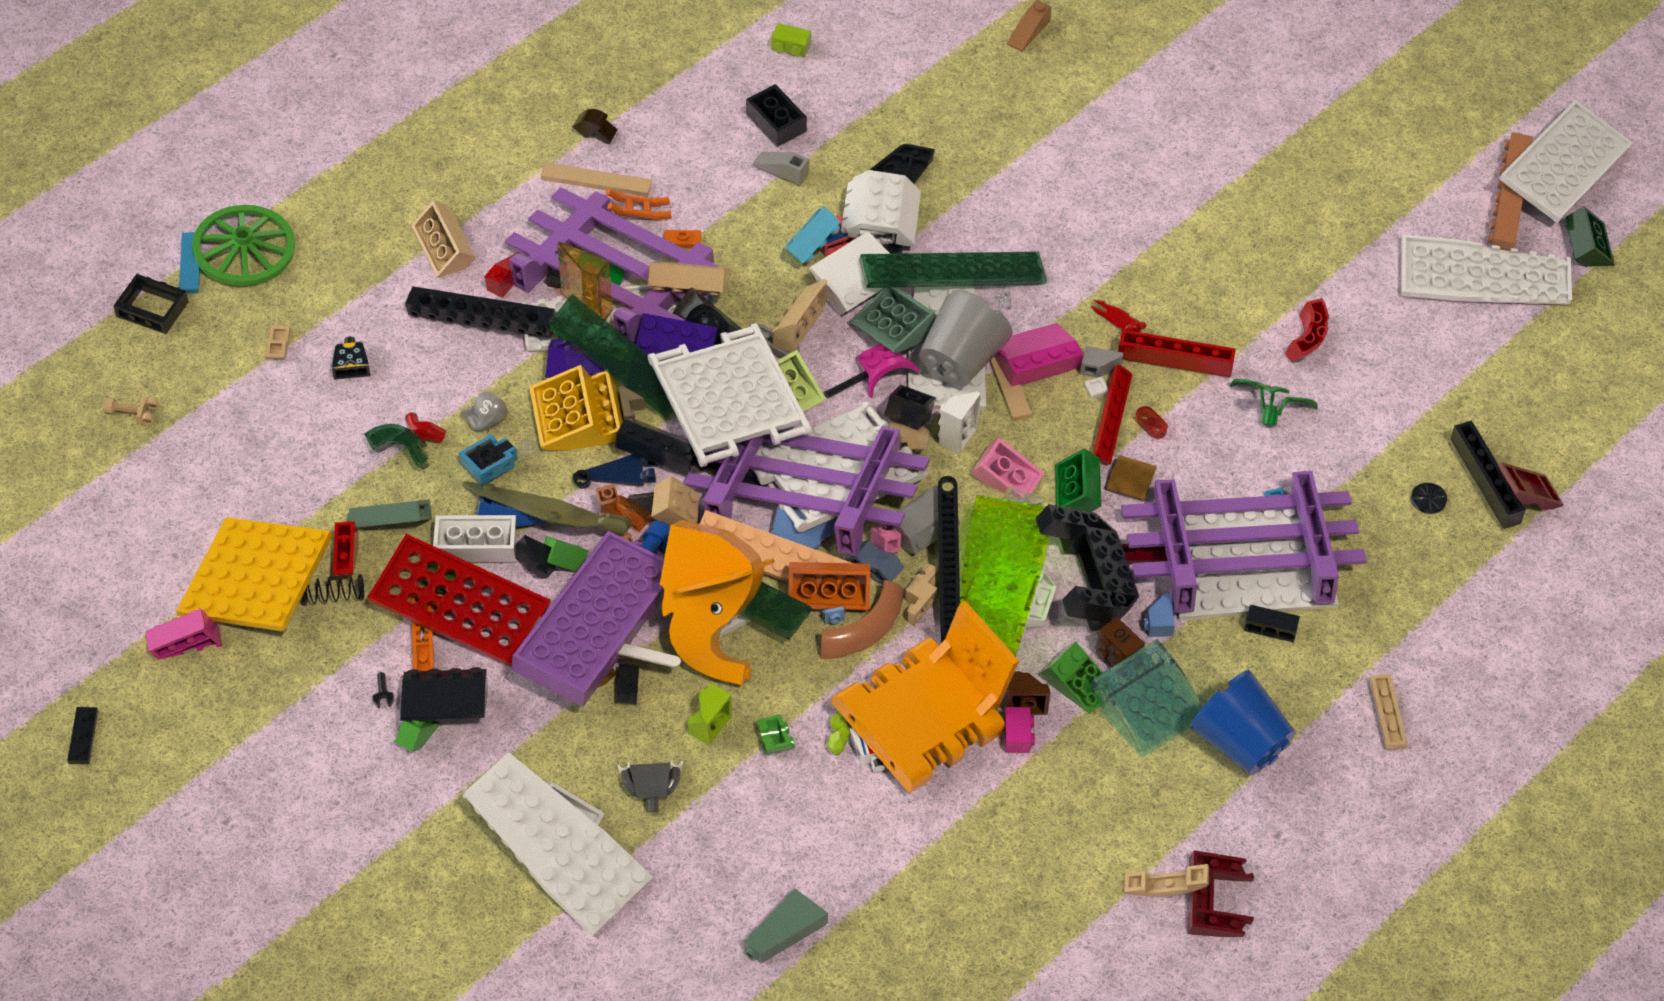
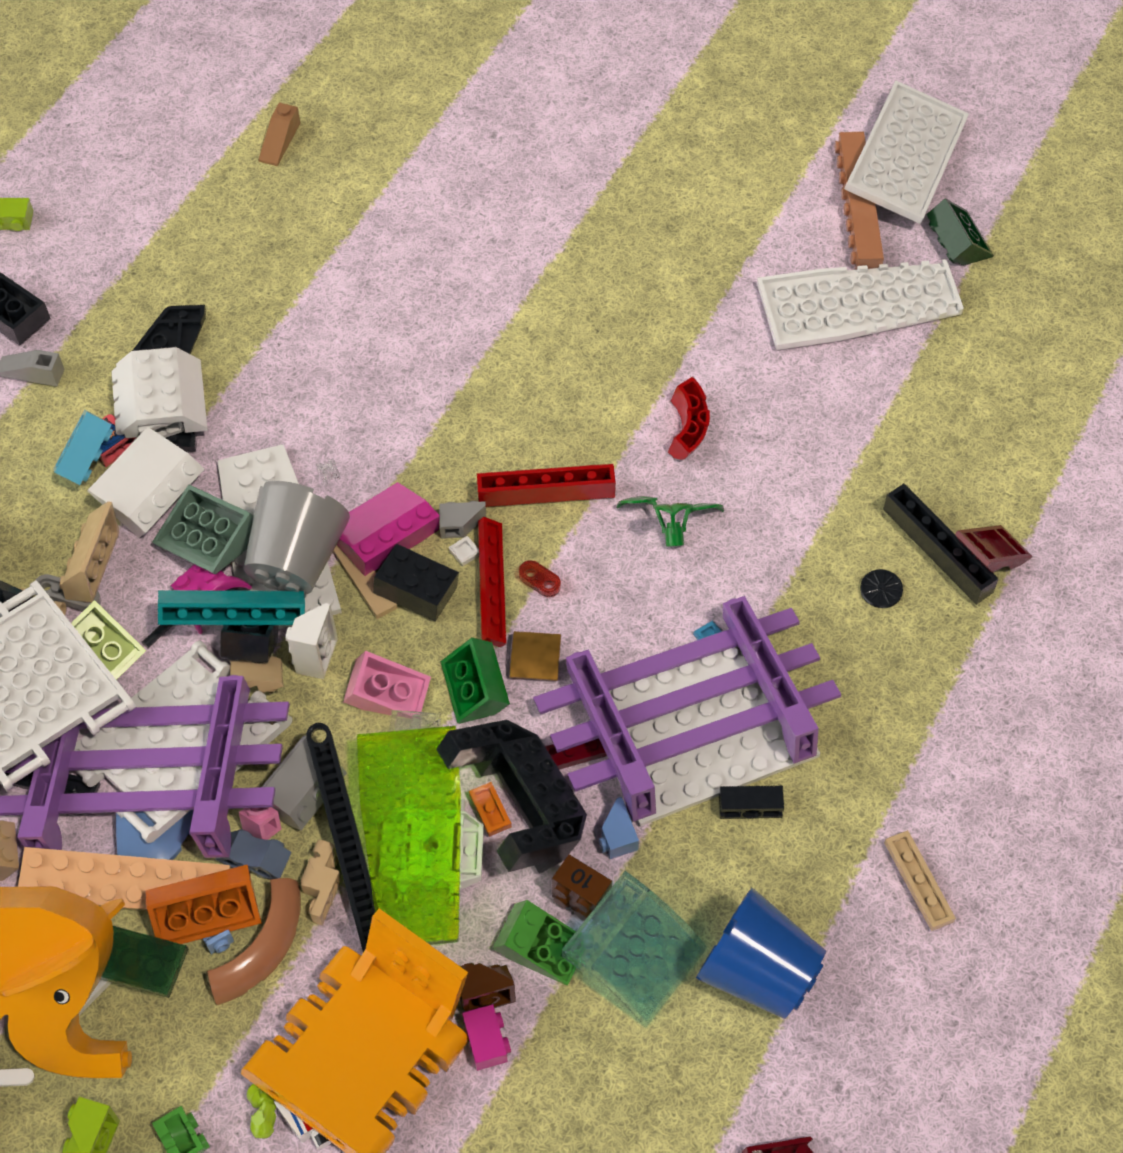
camera: 15 degrees left, 5 degrees up
(900, 379) = (229, 607): none -> teal brick
(952, 269) = (257, 449): clear green plate -> none
(1051, 399) = (415, 582): none -> black brick
(1064, 575) = (490, 809): none -> orange plate
(1119, 317) = (469, 457): red piece -> none

